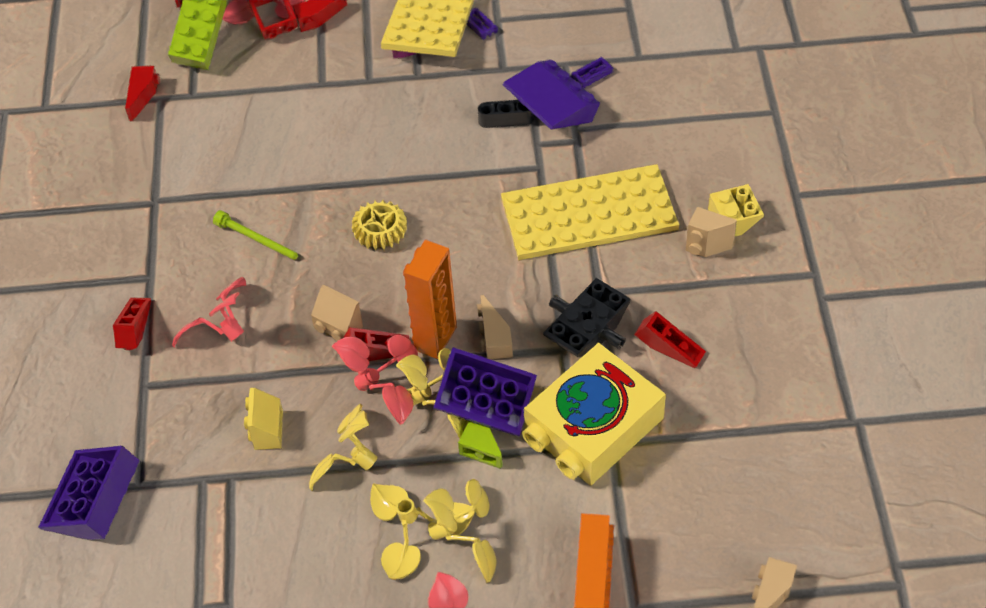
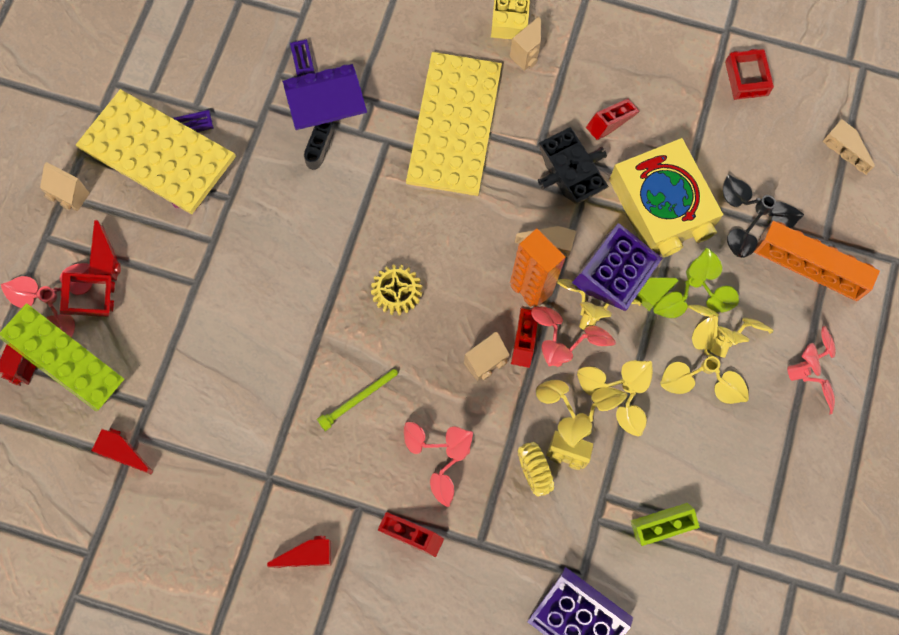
camera: 75 degrees left, 20 degrees up
(89, 250) = (310, 553): none -> red slope
(213, 533) = (665, 524): none -> lime brick
(228, 394) = (535, 469): none -> light yellow gear
(299, 422) = (578, 426): none -> light yellow plant
(508, 453) = (702, 268): none -> lime plant
(642, 493) = (737, 193): none -> black plant
(787, 467) = (750, 90): none -> red window

